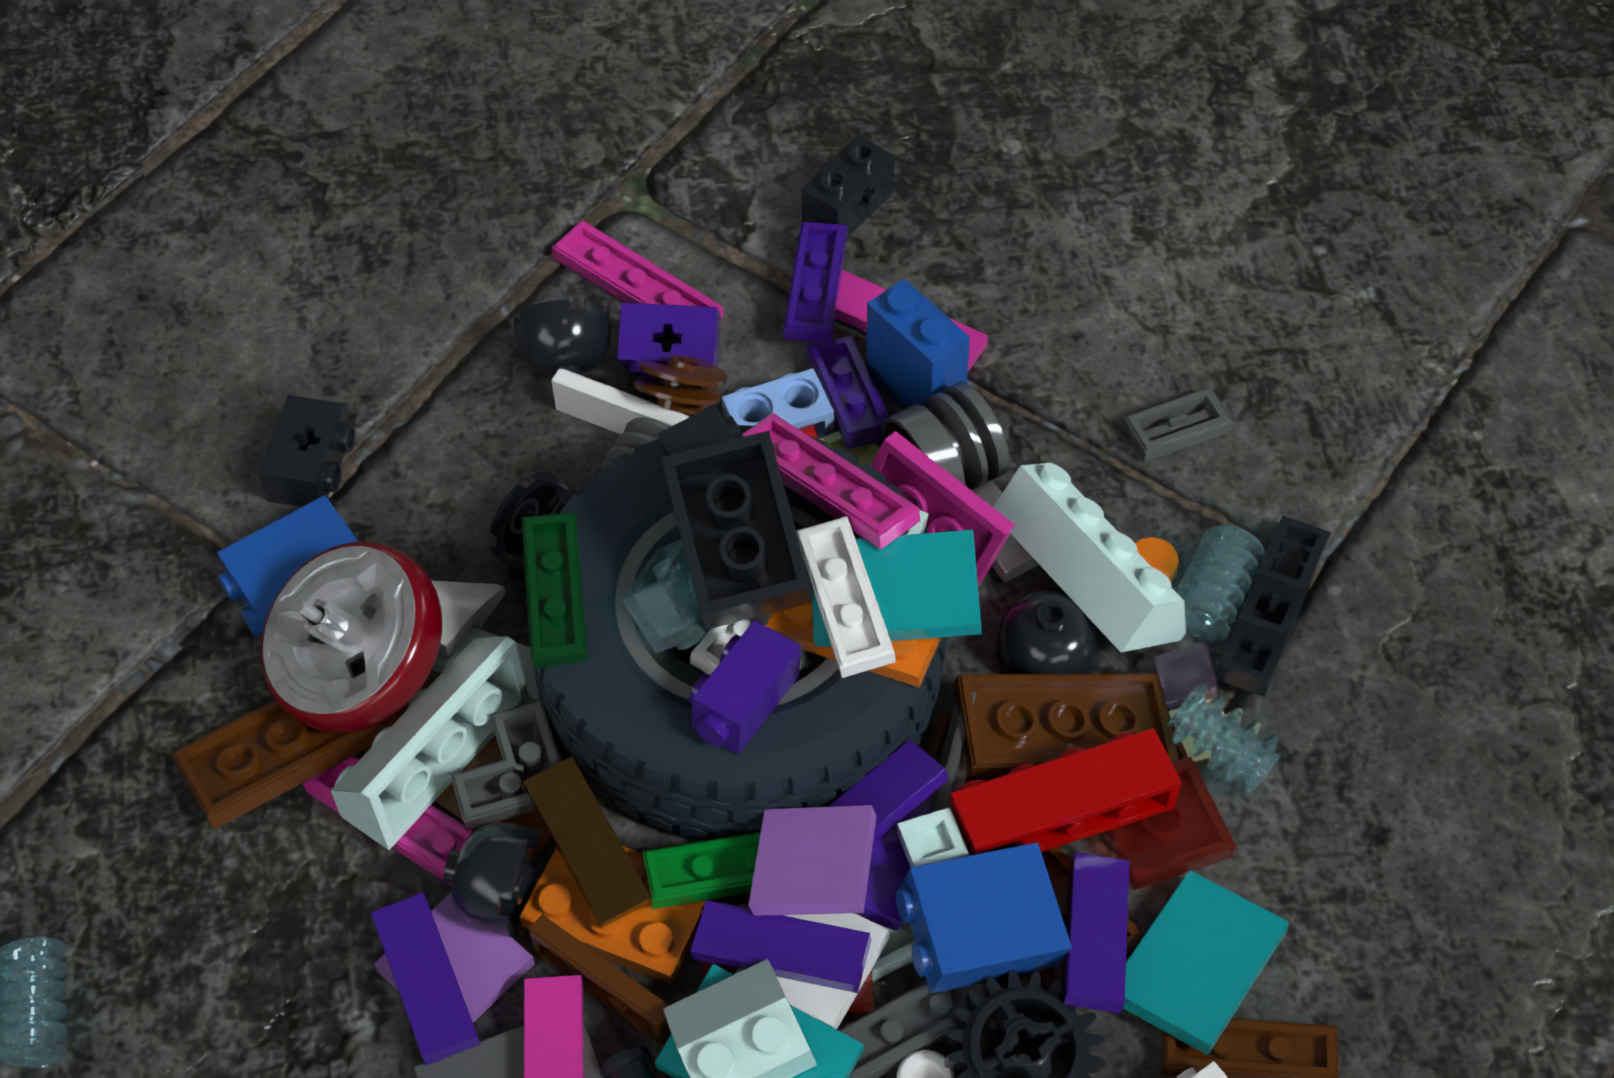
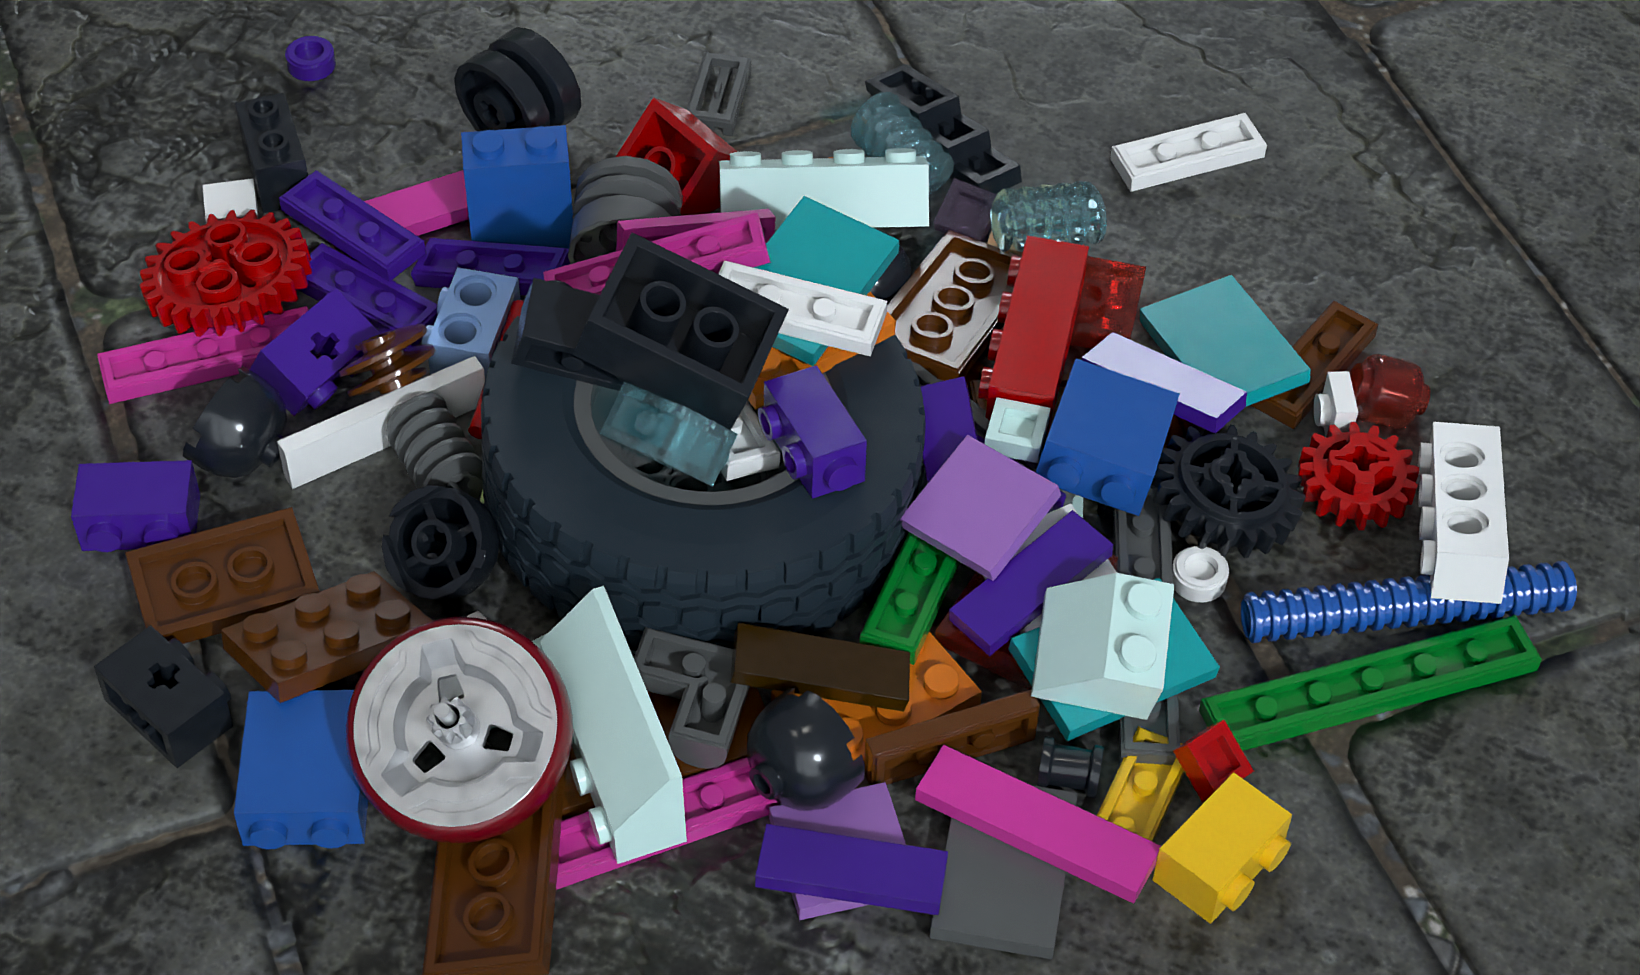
camera: 60 degrees left, 5 degrees down
(412, 511) = (321, 635): none -> reddish brown plate
(434, 420) = (221, 575): none -> reddish brown plate
(457, 330) = (134, 504): none -> dark purple brick
(554, 590) = (591, 514): dark green tile -> none
(742, 244) = (225, 273): none -> red gear
(763, 342) = (380, 302): none -> dark purple tile
(782, 201) = (227, 196): none -> white tile
(976, 151) = (310, 58): none -> dark purple tile
(1025, 291) = (518, 84): none -> black wheel
(1065, 428) = (683, 147): none -> red slope
(1429, 809) = (1188, 152): none -> white tile

